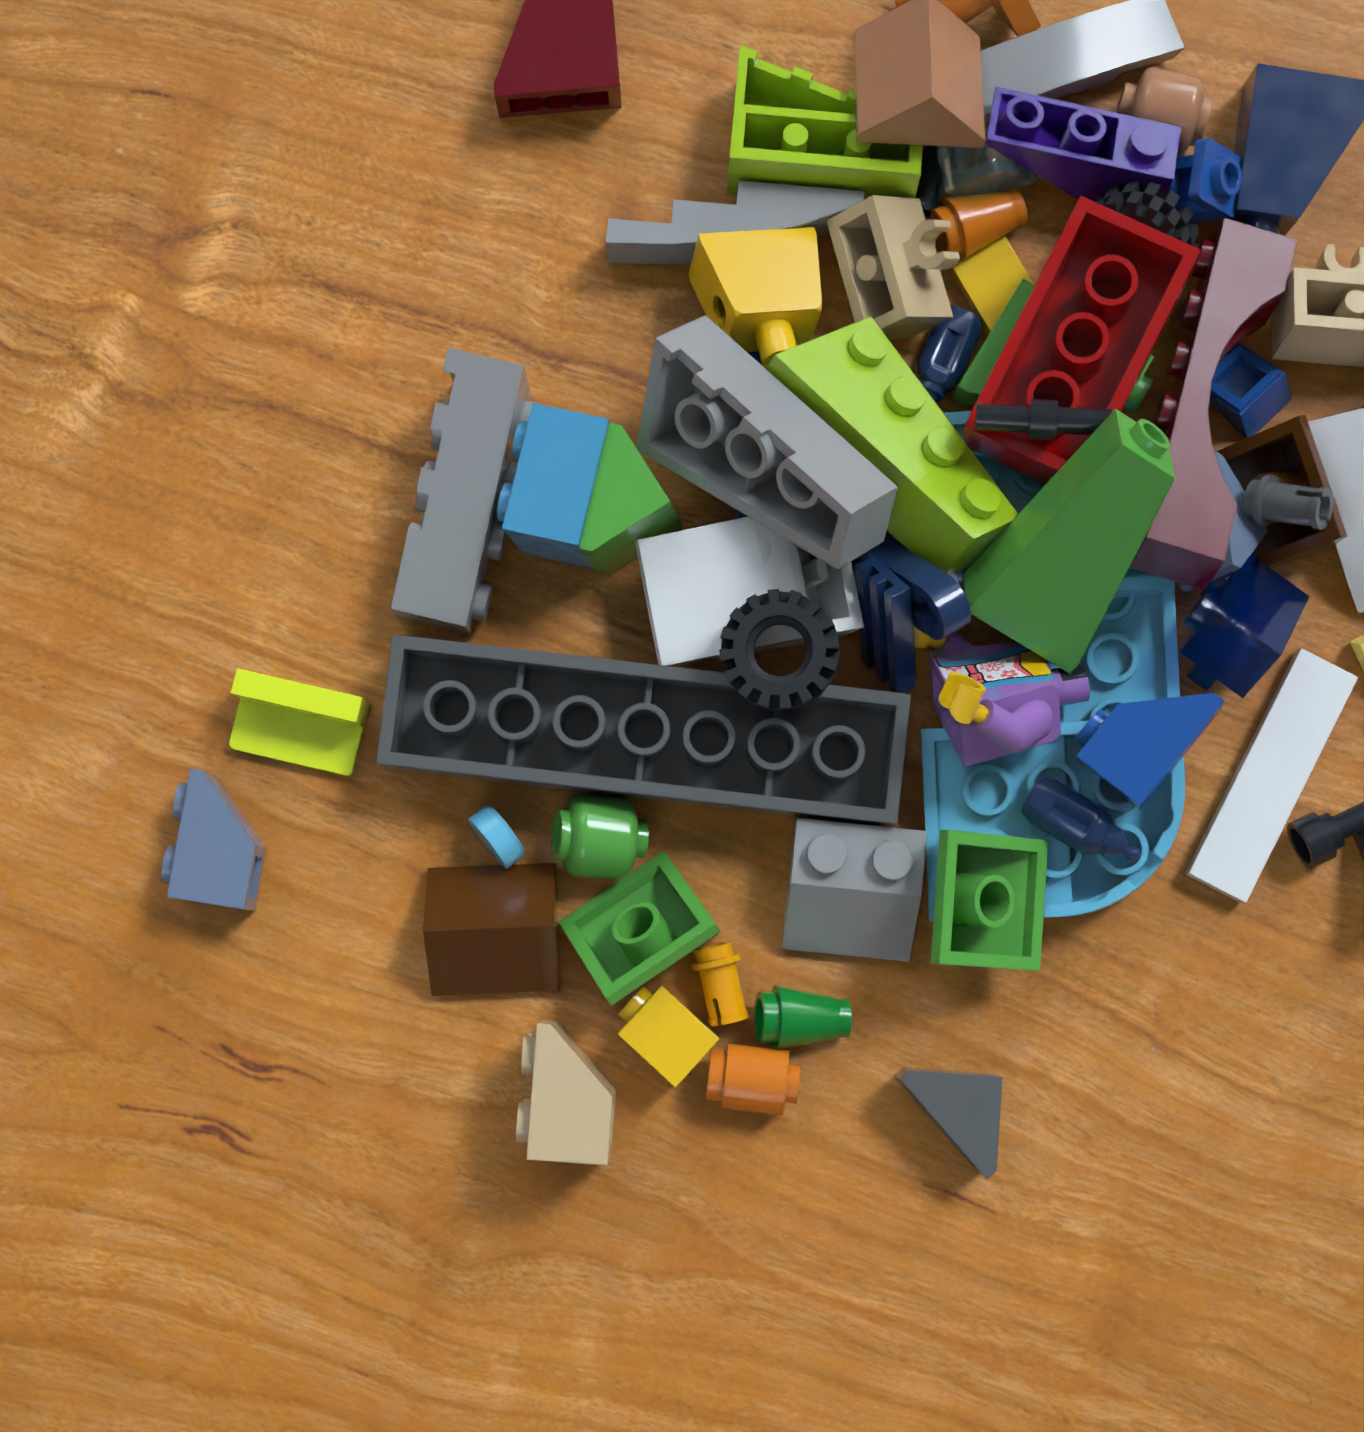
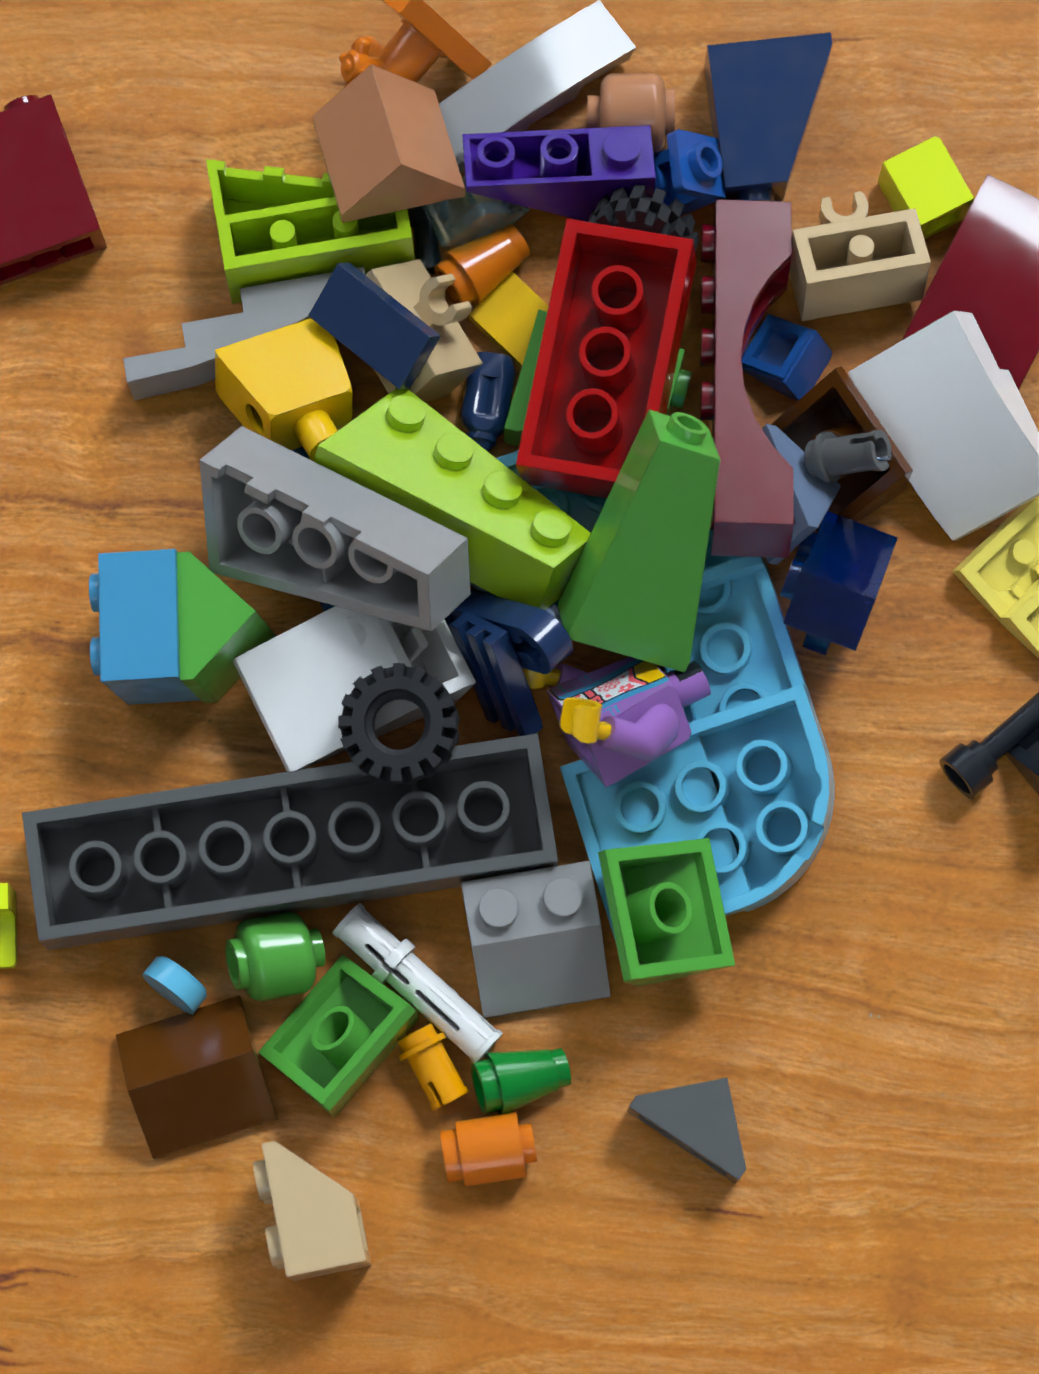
camera: 15 degrees left, 5 degrees down
(459, 495) = (50, 663): light grey wedge -> none
(665, 1033) = (391, 1128): yellow brick -> none
(727, 899) = (416, 982): none -> white pin
(860, 251) = (374, 325): none -> dark blue tile
(1040, 420) = (583, 438): black bar -> none
(1076, 821) = (729, 811): dark blue piece -> none
(1144, 741) = (772, 716): blue slope -> none
(1271, 775) = (911, 720): white tile -> none

